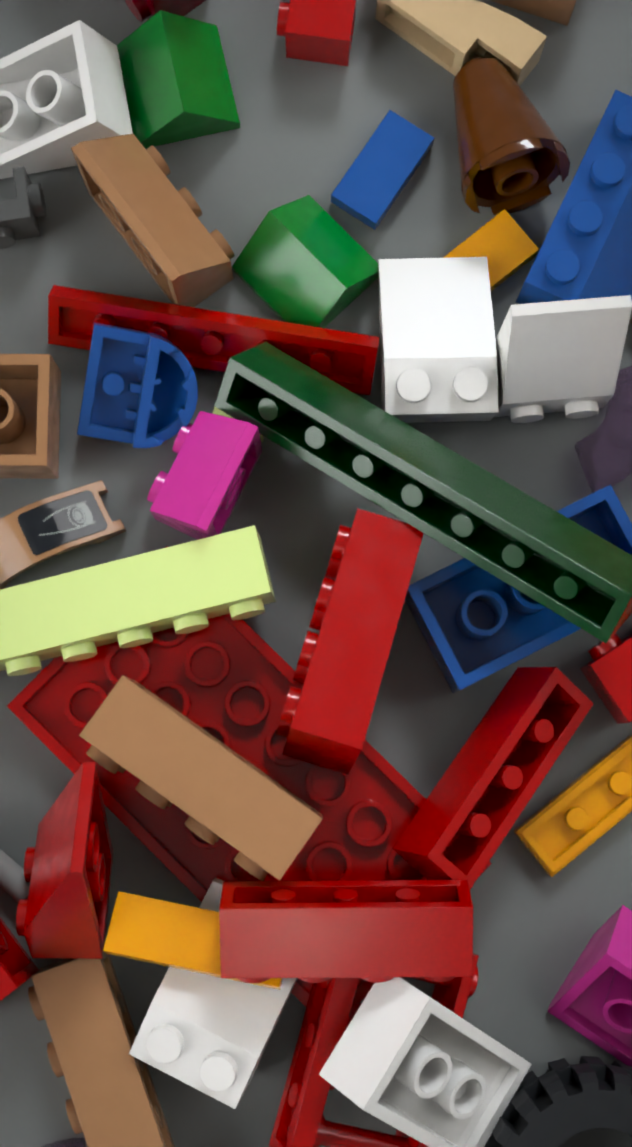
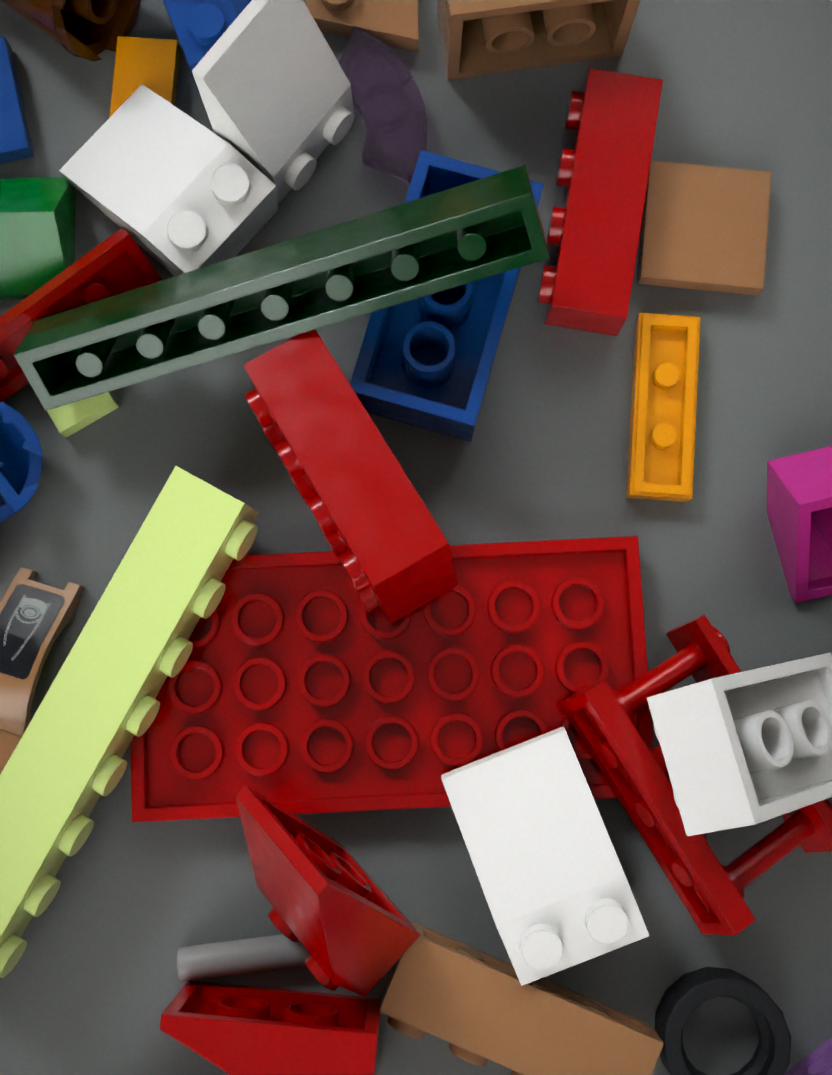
camera: 45 degrees left, 0 degrees up
(168, 935) = (480, 837): light orange tile -> none
(200, 776) = (343, 706): medium nougat brick -> none
(207, 474) = (98, 471): dark pink slope -> none
(346, 930) = (588, 700): red brick -> none
(494, 775) = (571, 467): red brick -> none

